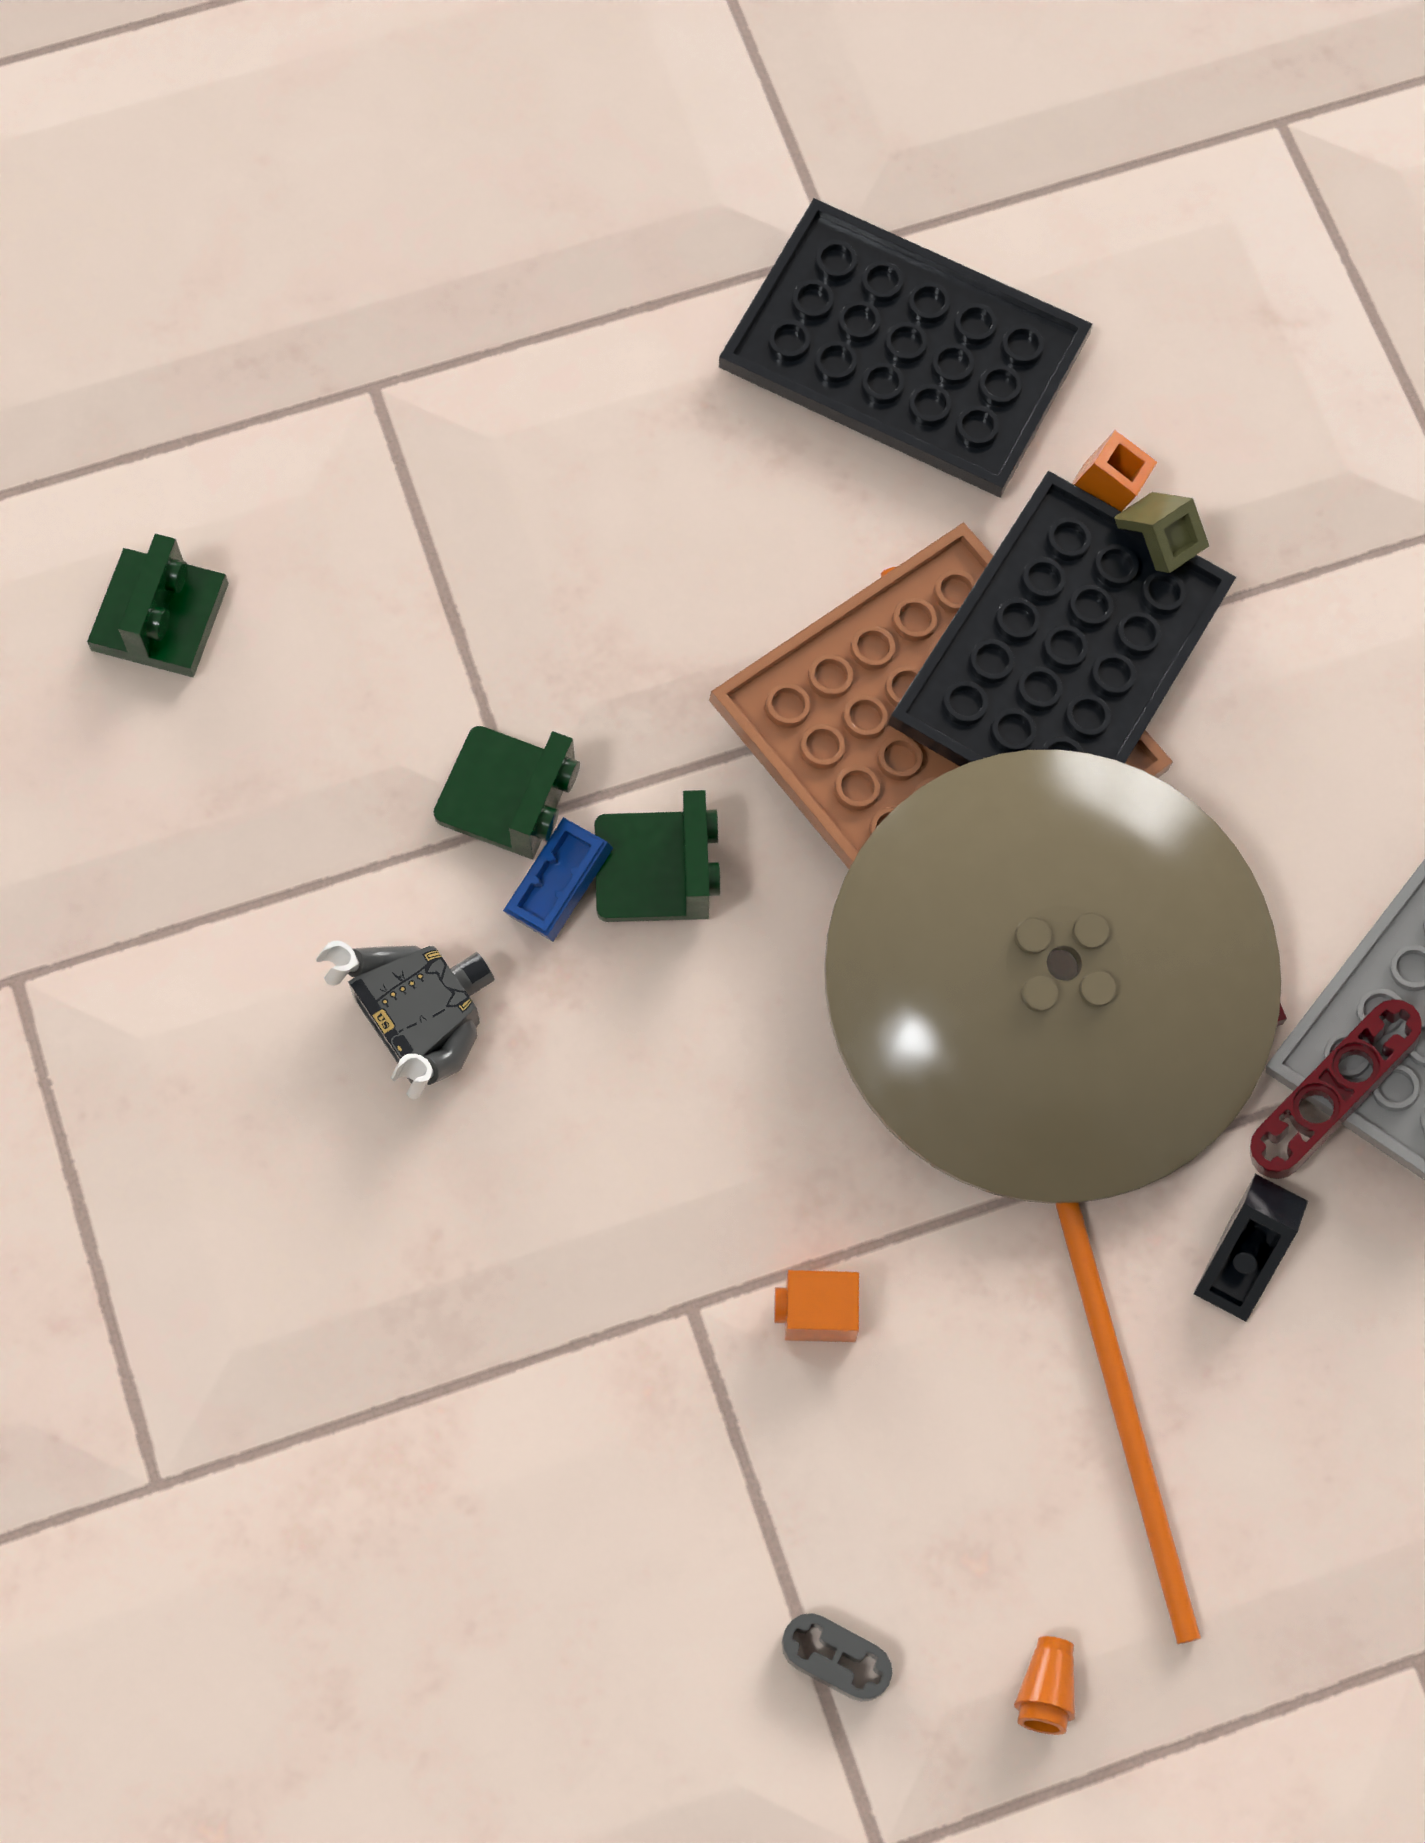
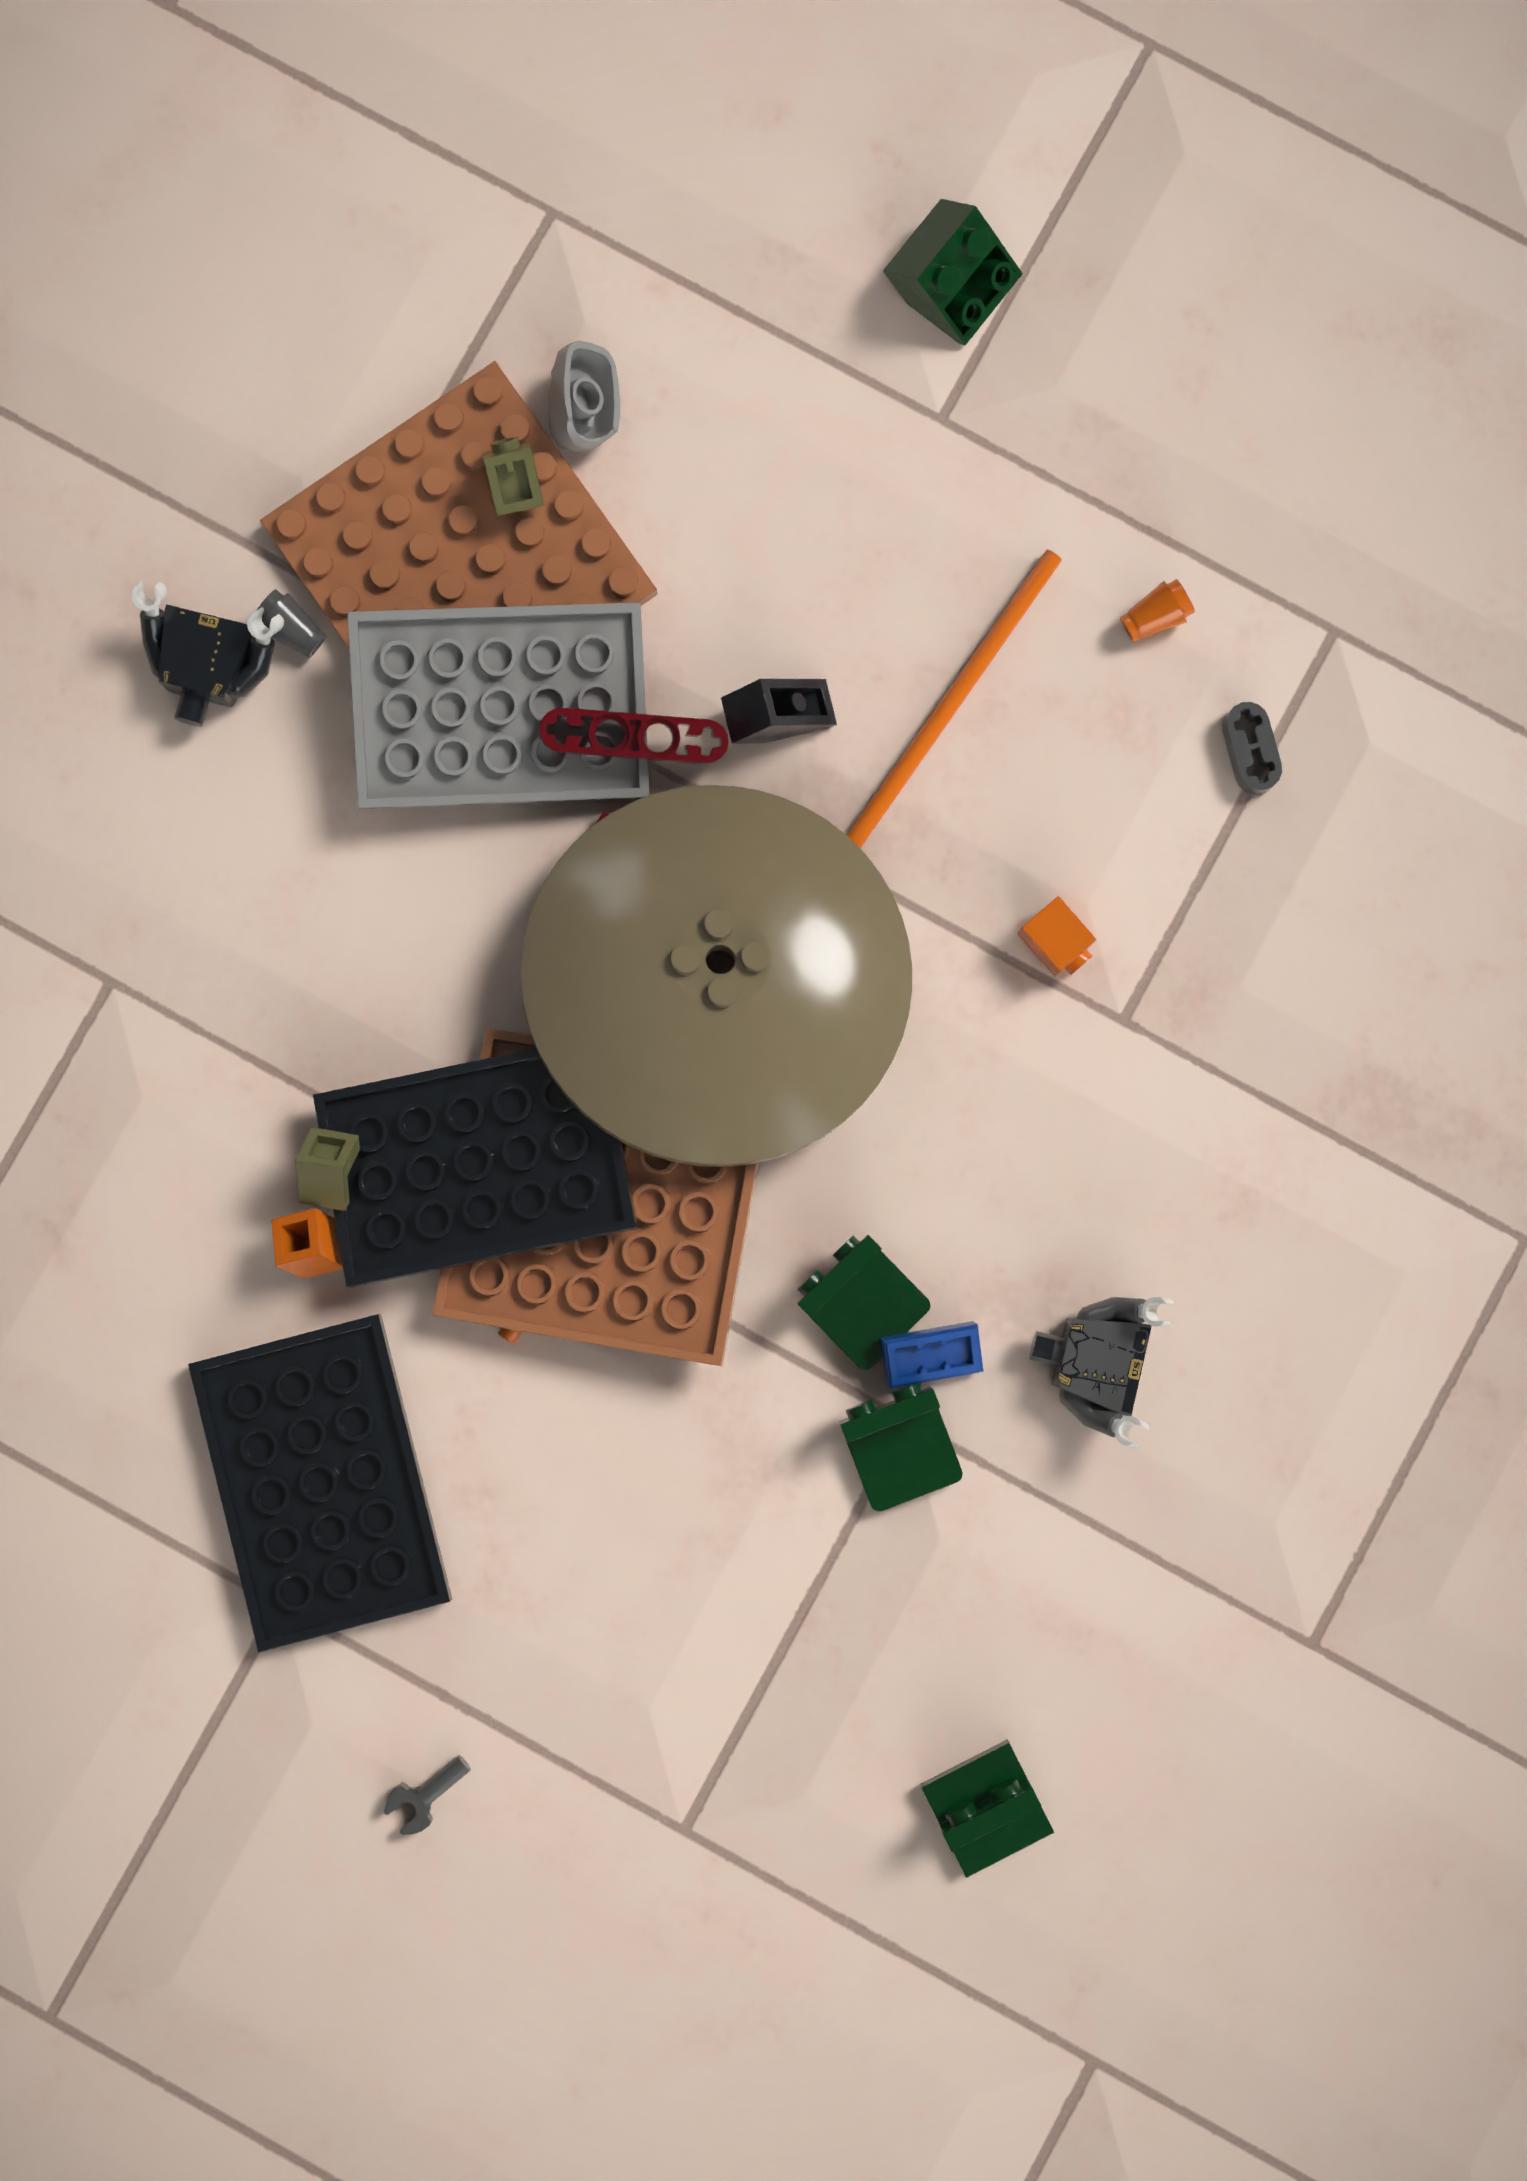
camera: 130 degrees left, 15 degrees up
(587, 227) = (424, 1796): none -> dark grey bar

